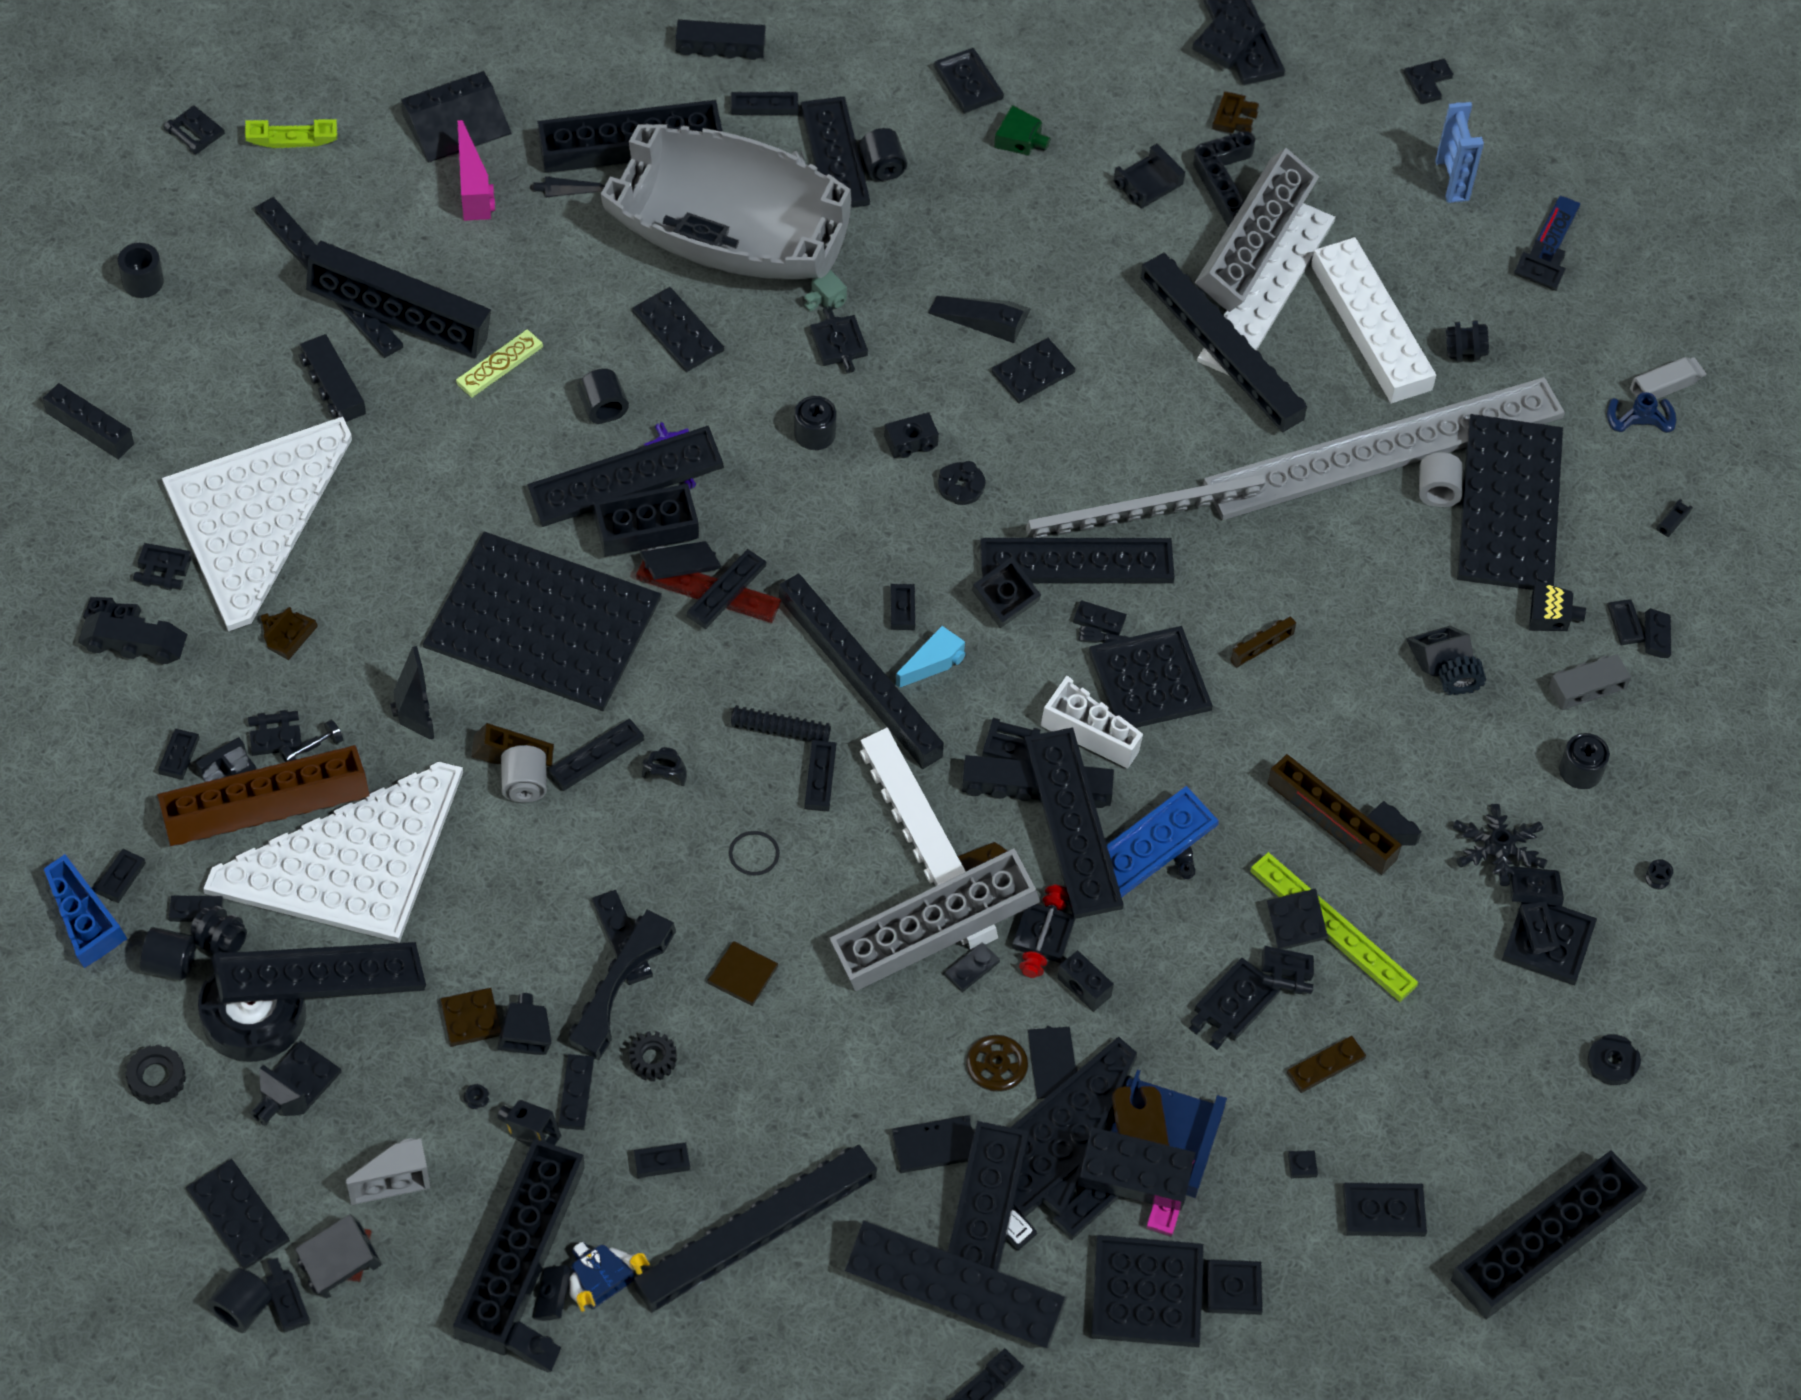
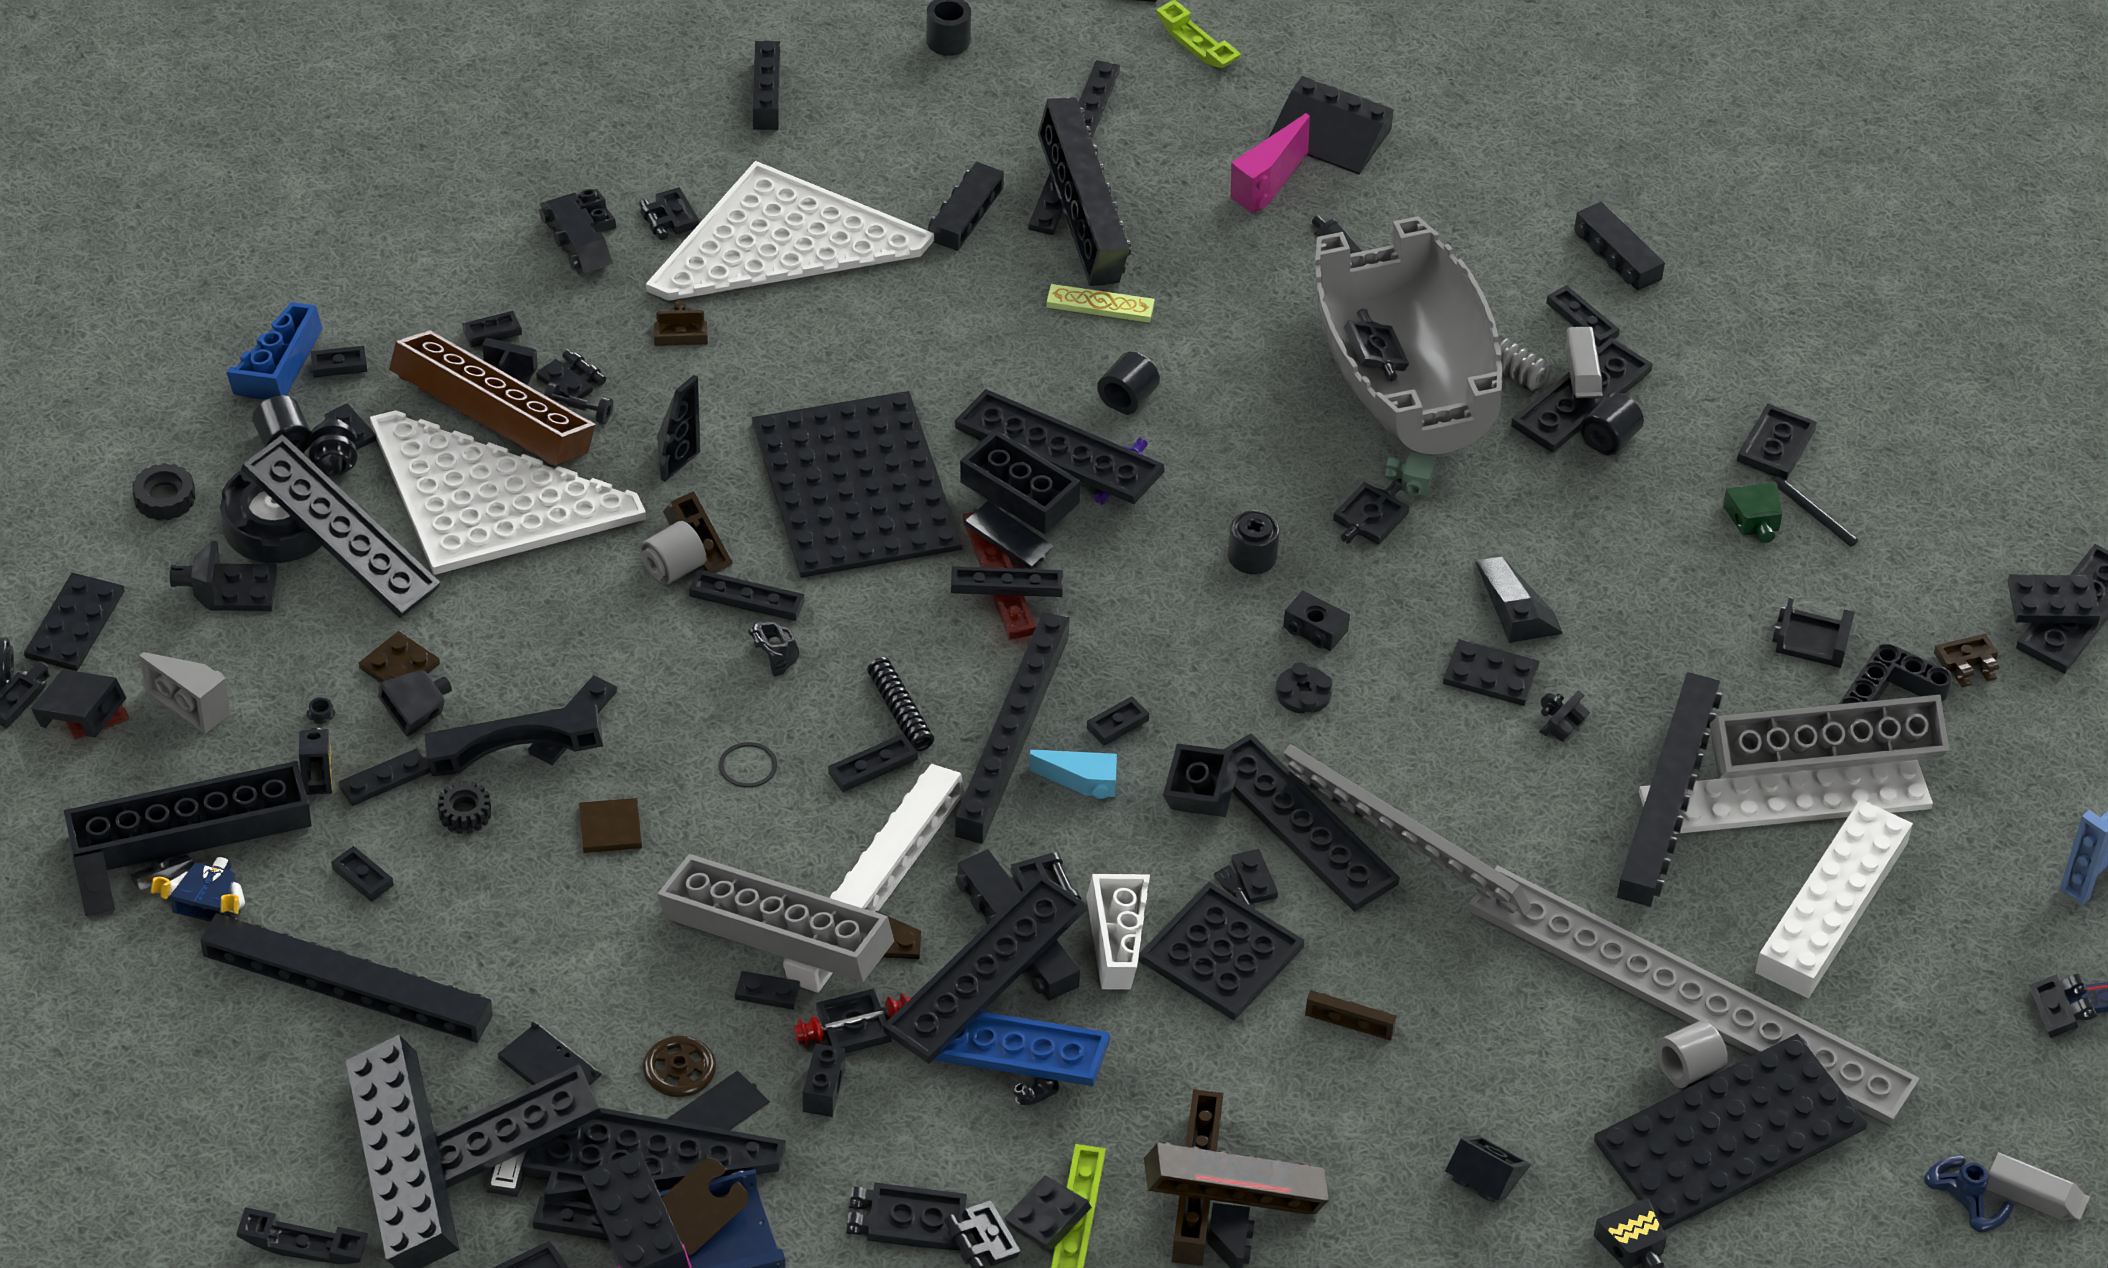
camera: 55 degrees right, 10 degrees down
(605, 137) = (1379, 201): black brick -> none
(678, 329) = (1264, 398): black plate -> none
(820, 132) = (1583, 362): none -> light grey piece
(1043, 103) = (1815, 511): none -> black bar
(1103, 356) = (1573, 709): none -> black hips
(1364, 792) = (1235, 1178): none -> brick
(1462, 675) = (1467, 1196): black bush -> none
(1467, 341) = (1891, 986): black piece -> none

